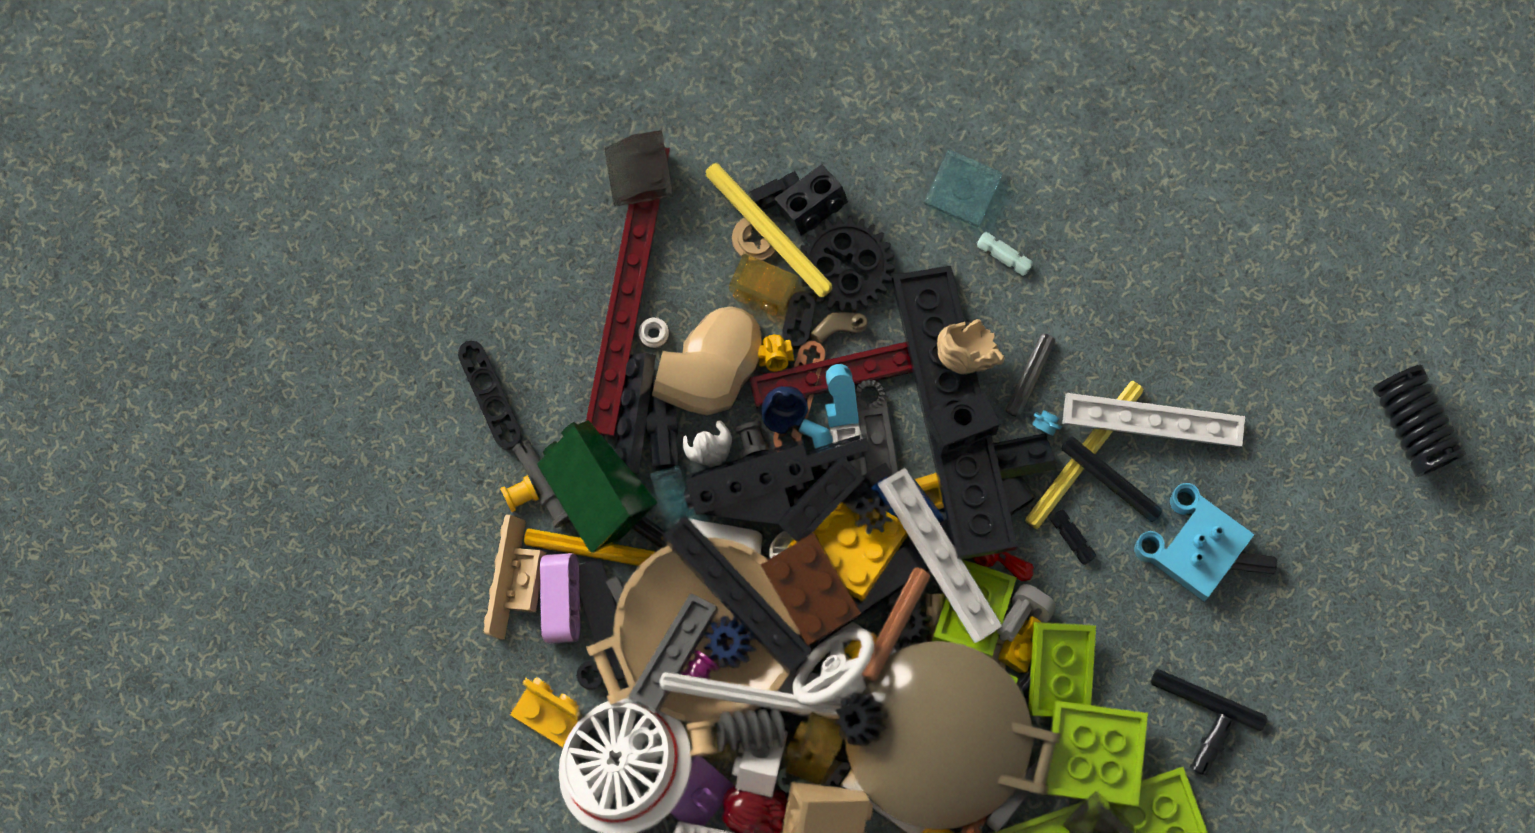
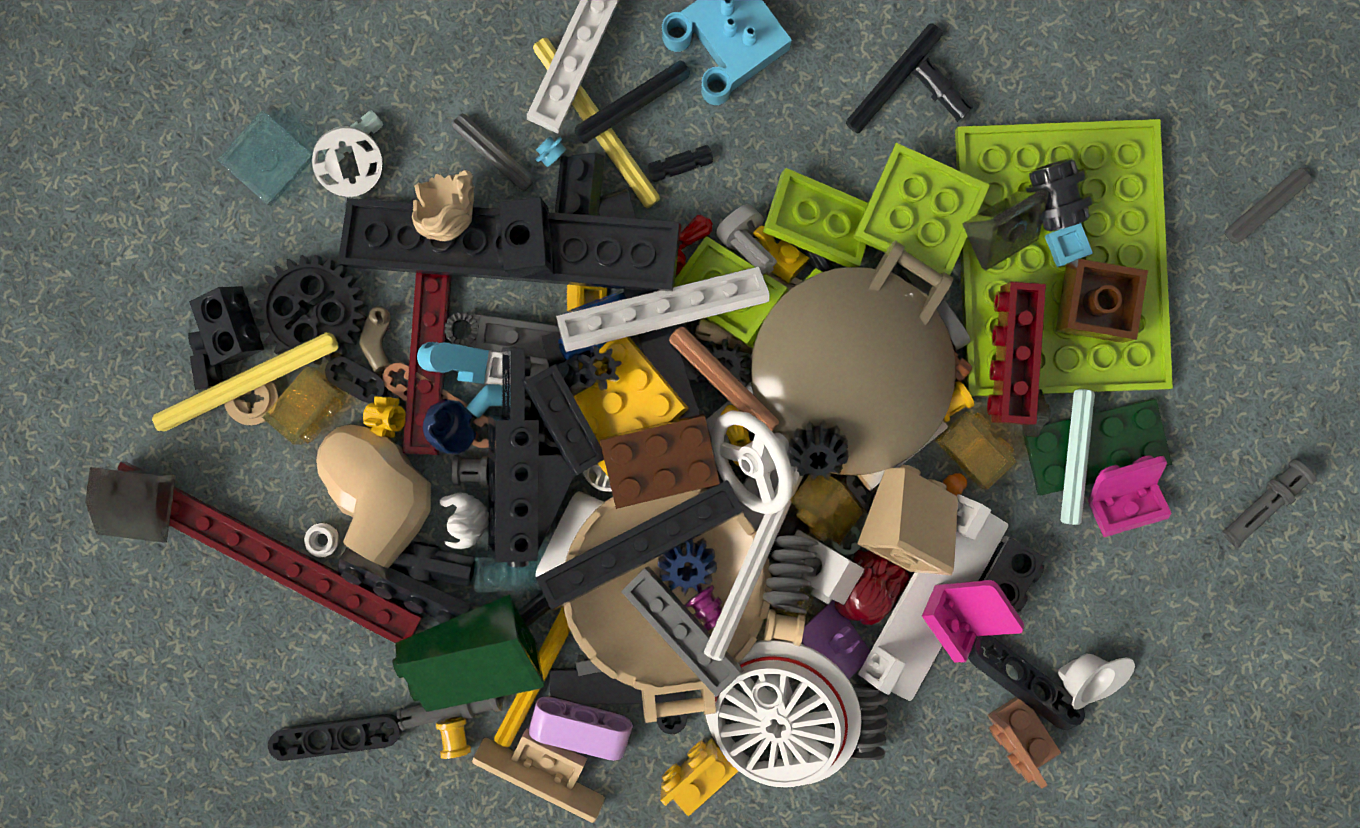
camera: 70 degrees left, 10 degrees up
(973, 243) = (363, 157): none -> white piece

